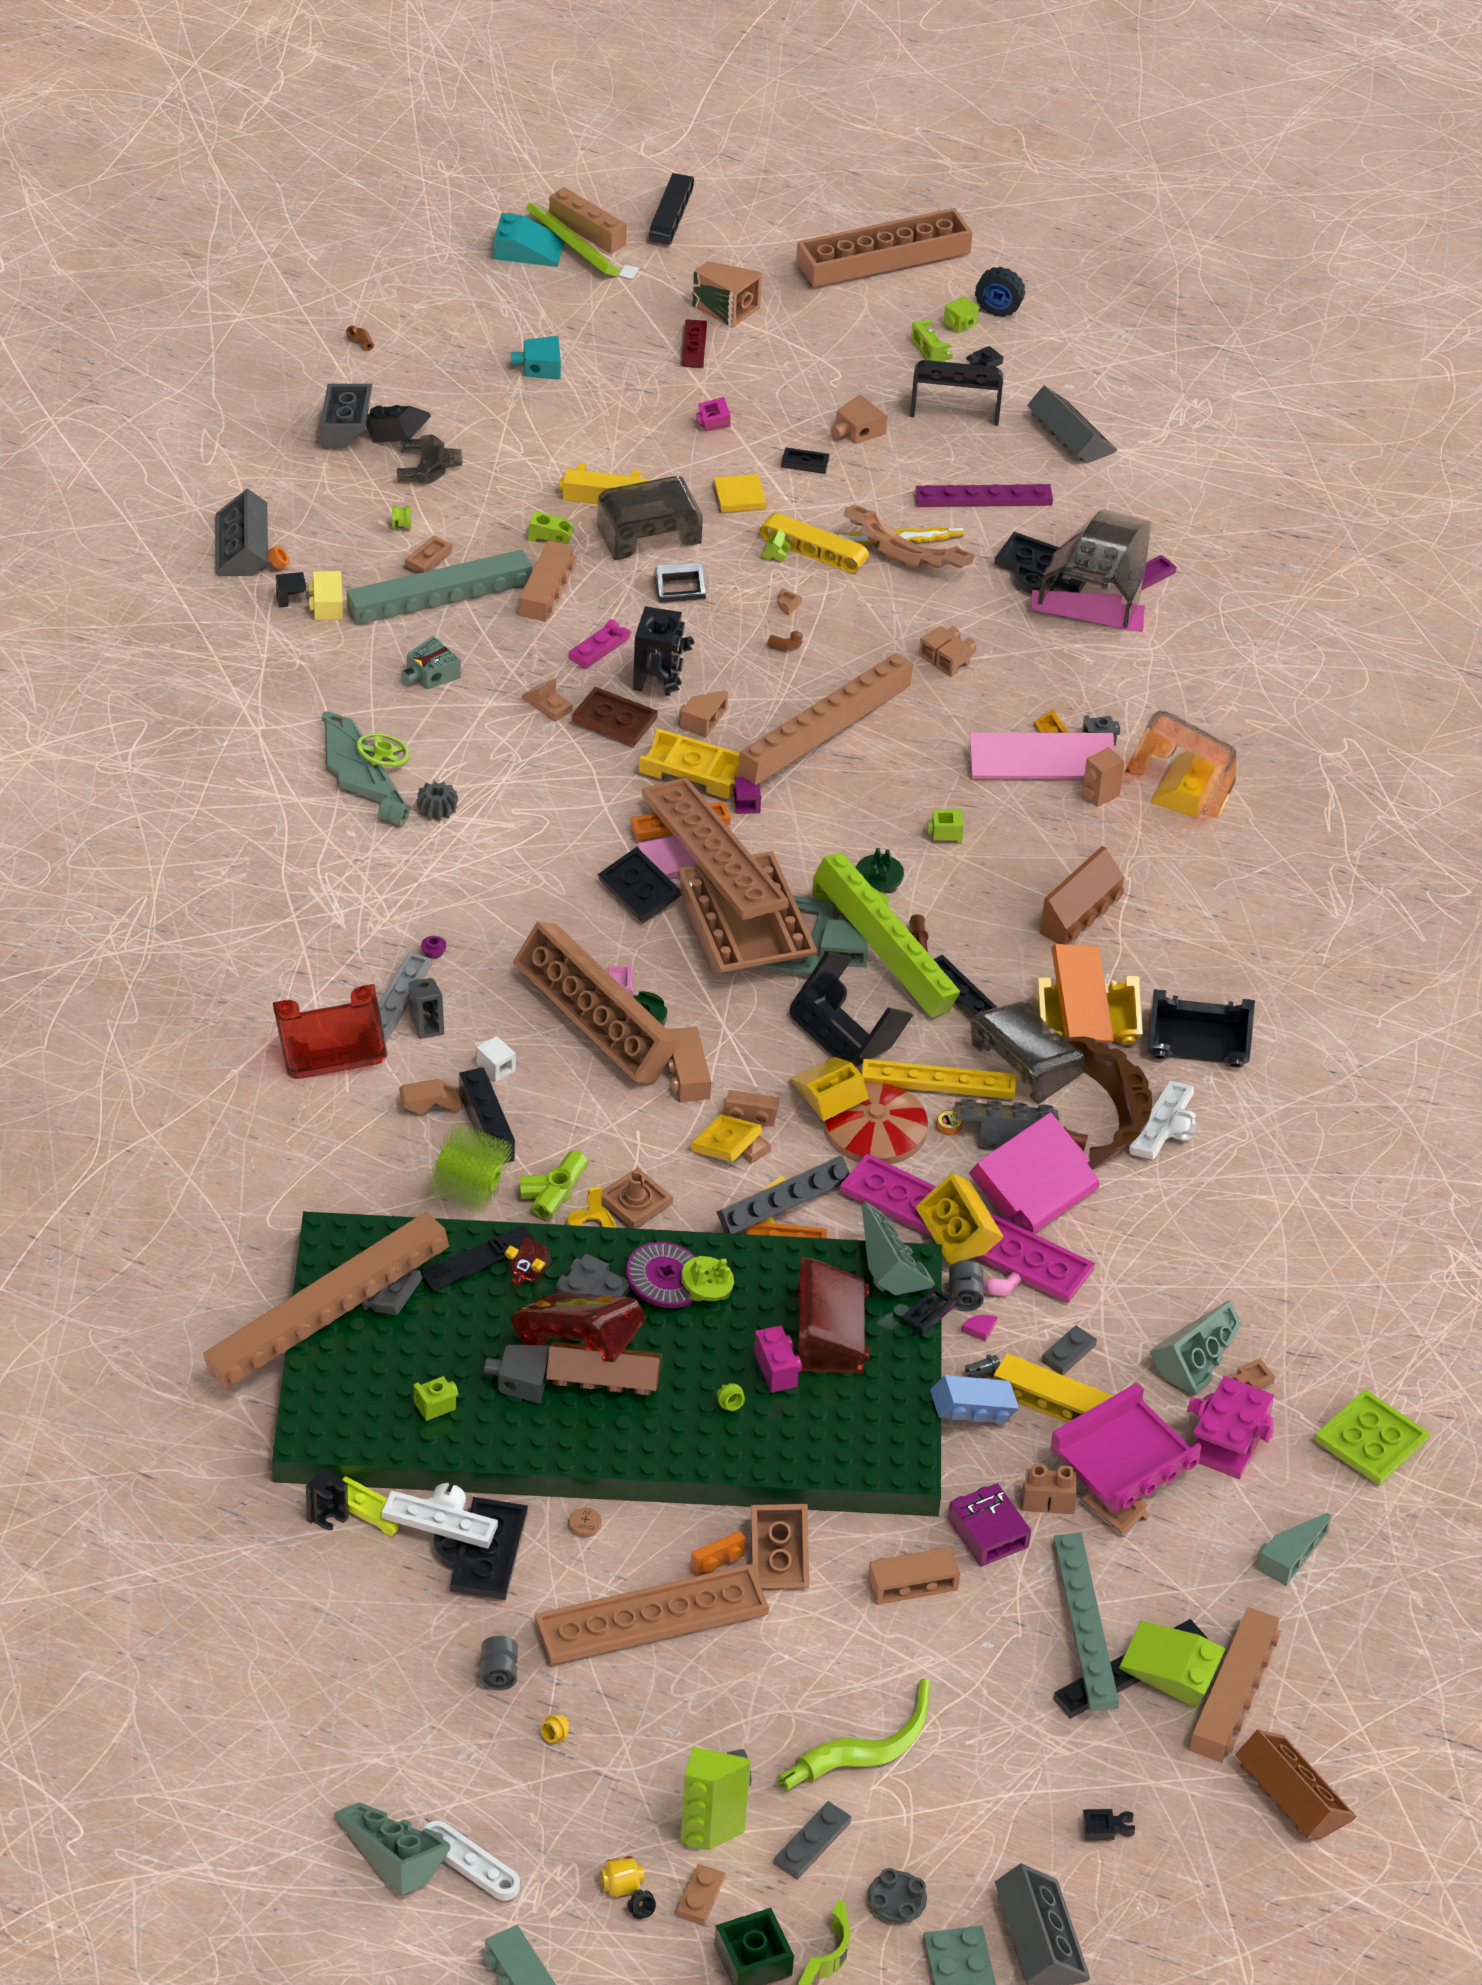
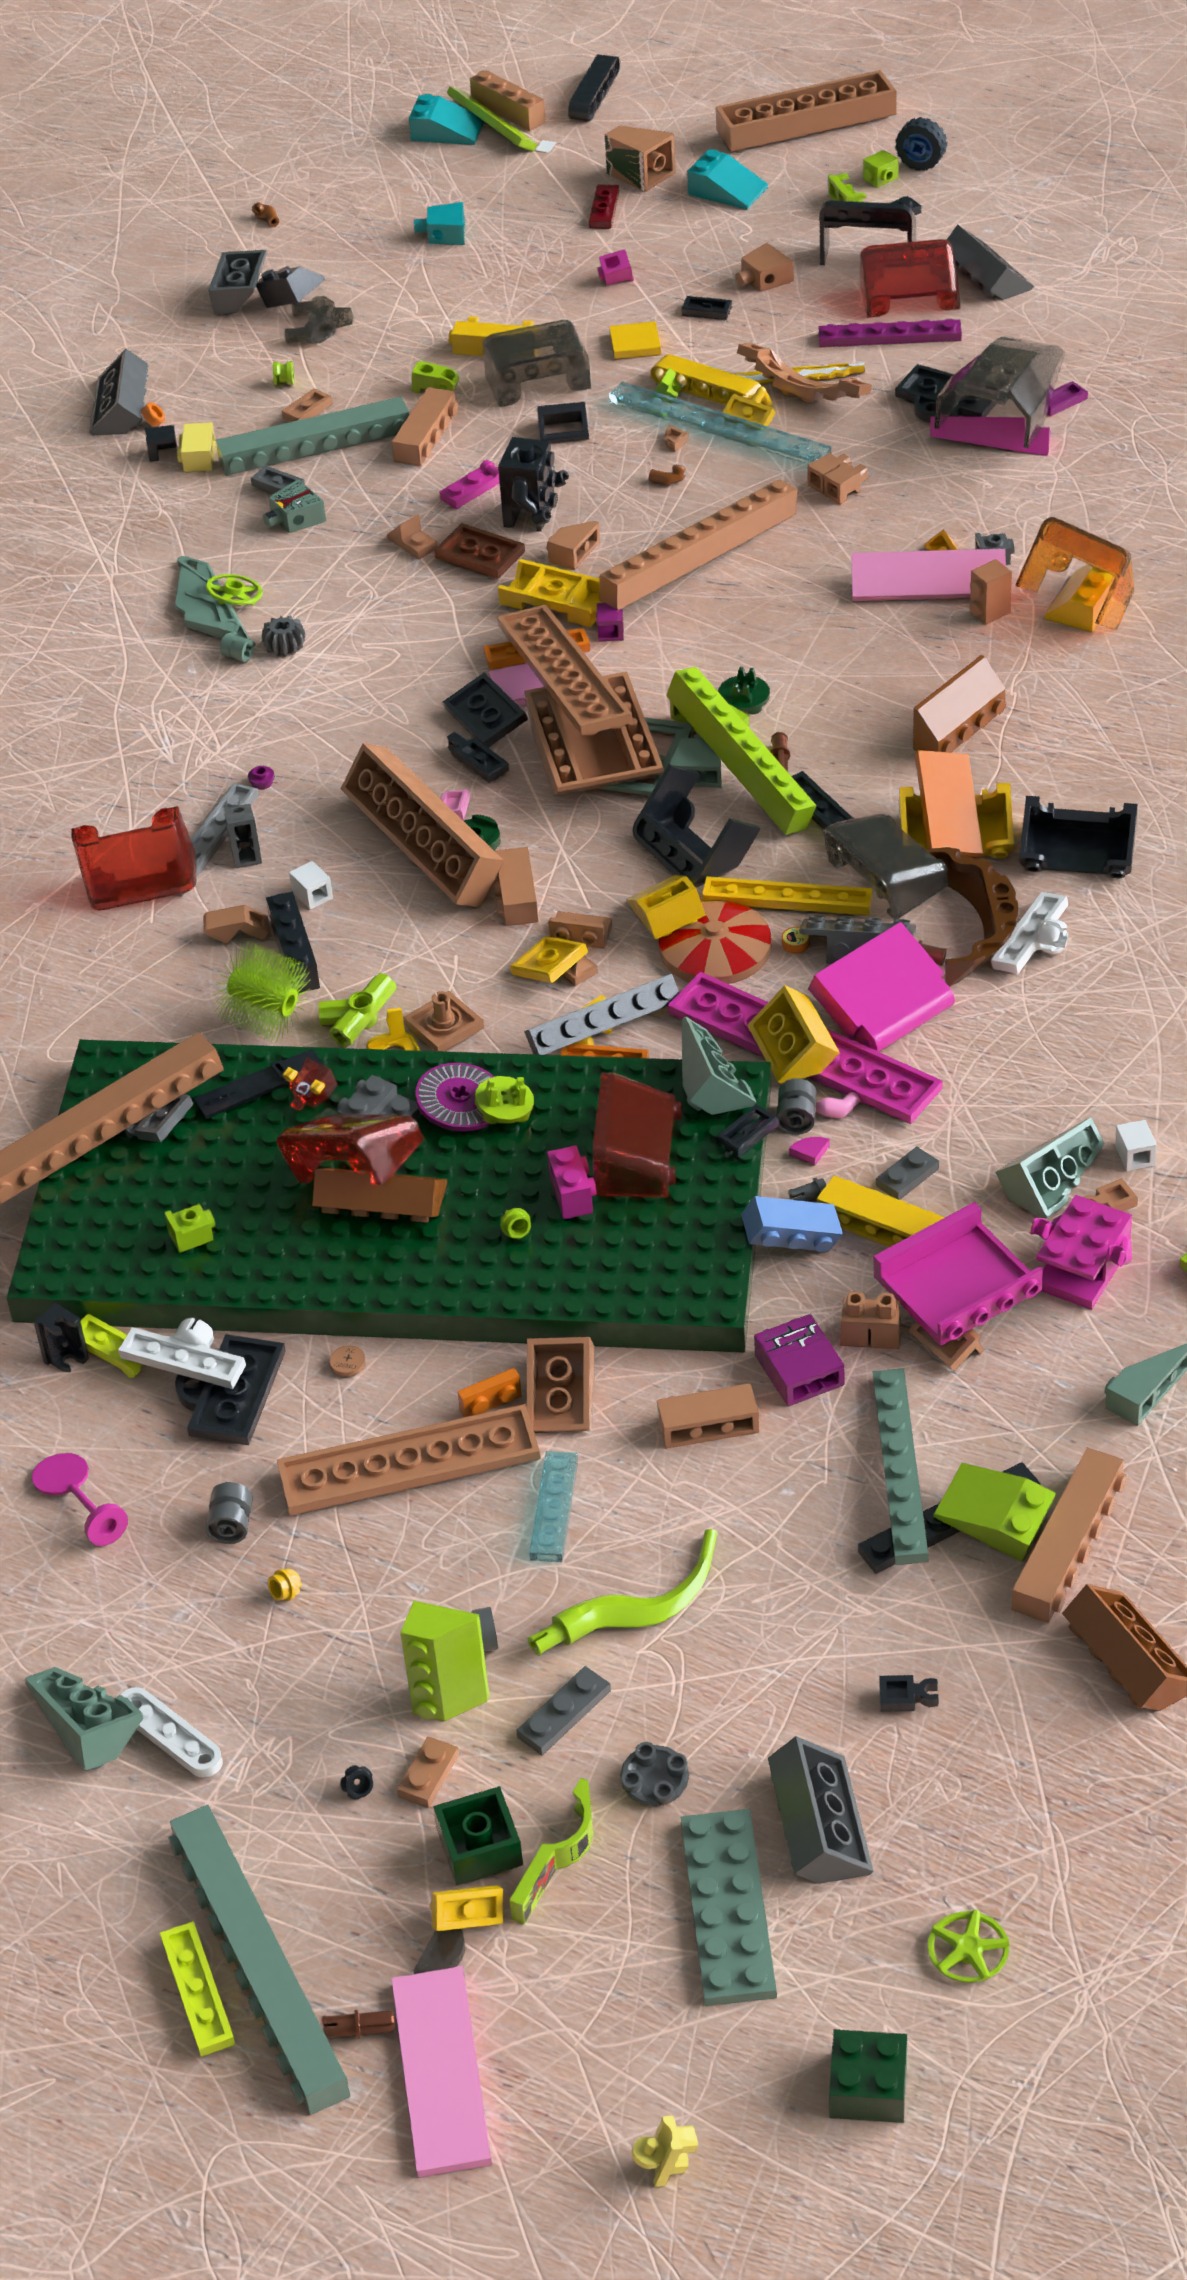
camera: 10 degrees right, 0 degrees up
(344, 1625) = (65, 1474): none -> dark pink piece
(407, 634) = (272, 479): none -> dark grey plate
(521, 1371) = (286, 1199): dark grey torso -> none
(621, 1876) = (338, 1750): yellow head -> none
(636, 931) = (477, 757): none -> black hinge
(784, 1657) = (553, 1506): none -> clear light blue plate
(810, 321) = (724, 180): none -> teal slope
(830, 588) = (718, 423): none -> clear light blue plate
(859, 576) = (752, 409): none -> yellow plate
(946, 825) = (819, 644): lime brick -> none
(997, 435) = (908, 272): none -> clear red windscreen
(1270, 1327) = (1135, 1145): none -> white brick

